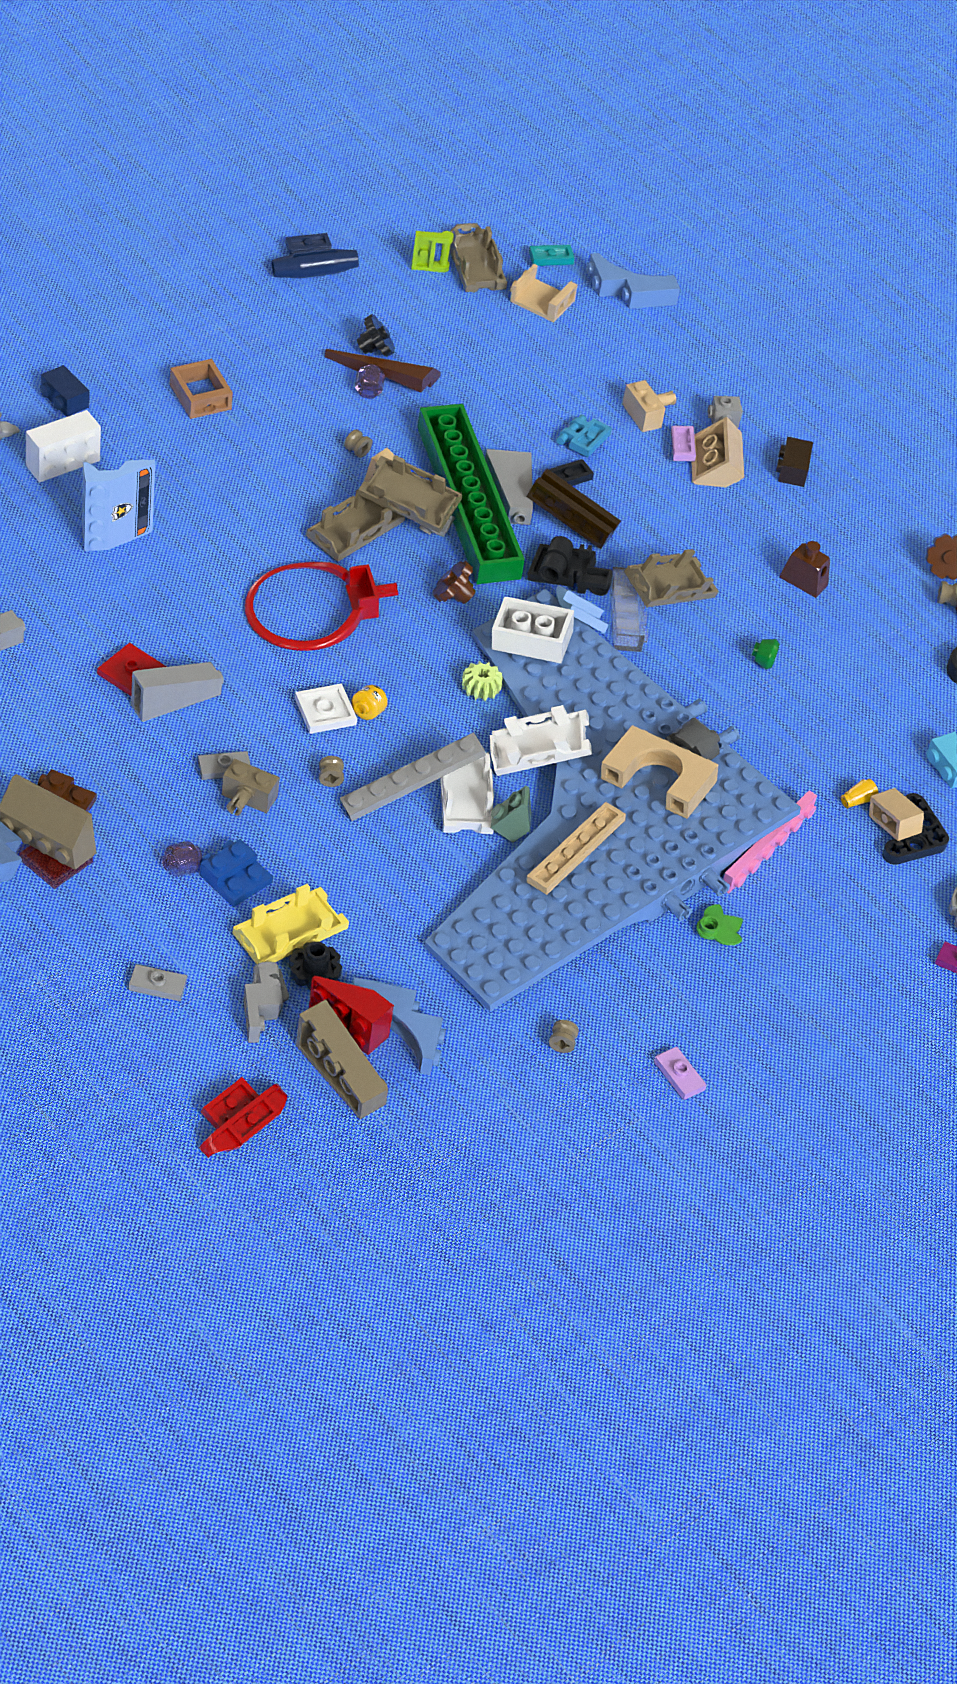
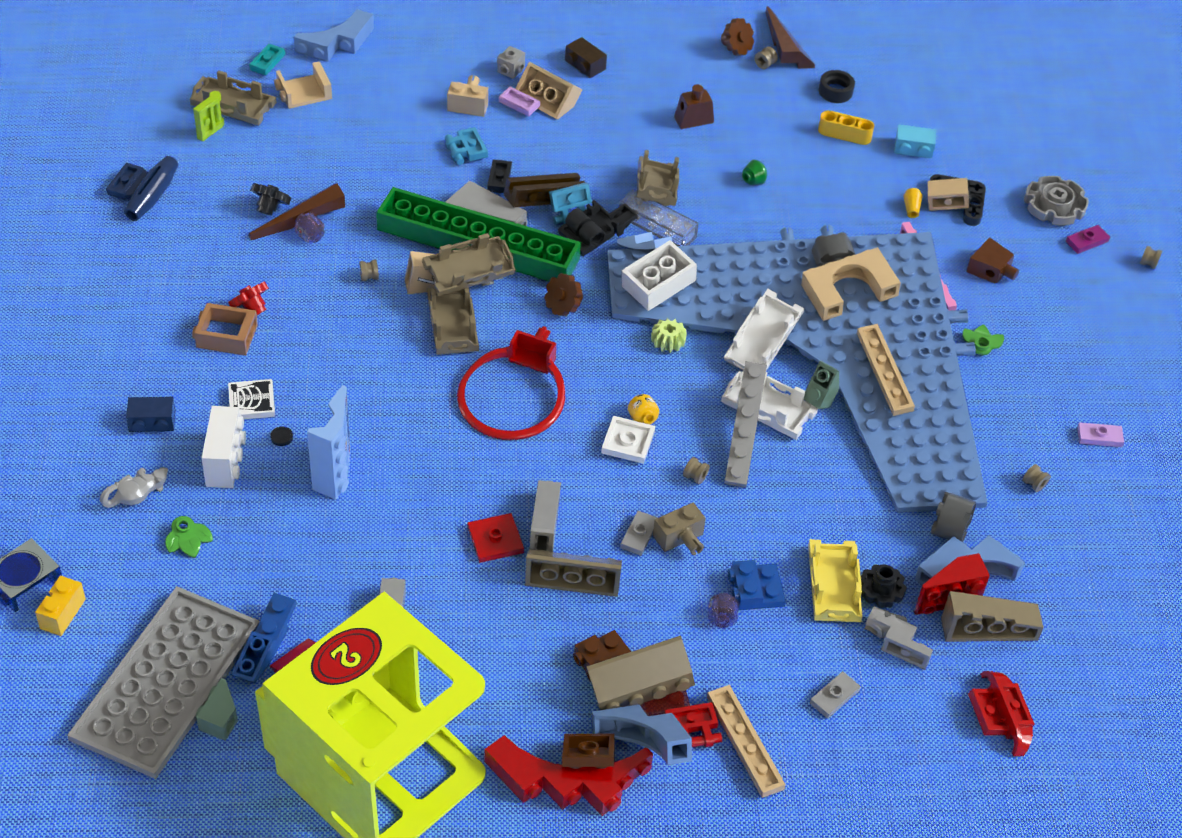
camera: 50 degrees left, 0 degrees up
(41, 887) = (698, 718): none -> red plate
(49, 936) = (746, 741): none -> tan plate
(133, 733) = (573, 572): none -> dark tan slope
(141, 443) = (253, 398): none -> tile
(245, 384) = (251, 298): none -> red plant
(441, 982) = (953, 517): none -> dark grey brick
(579, 529) = (568, 198): none -> dark azure plate
(836, 889) = (992, 262): none -> reddish brown torso
(913, 697) = (846, 127): none -> yellow beam

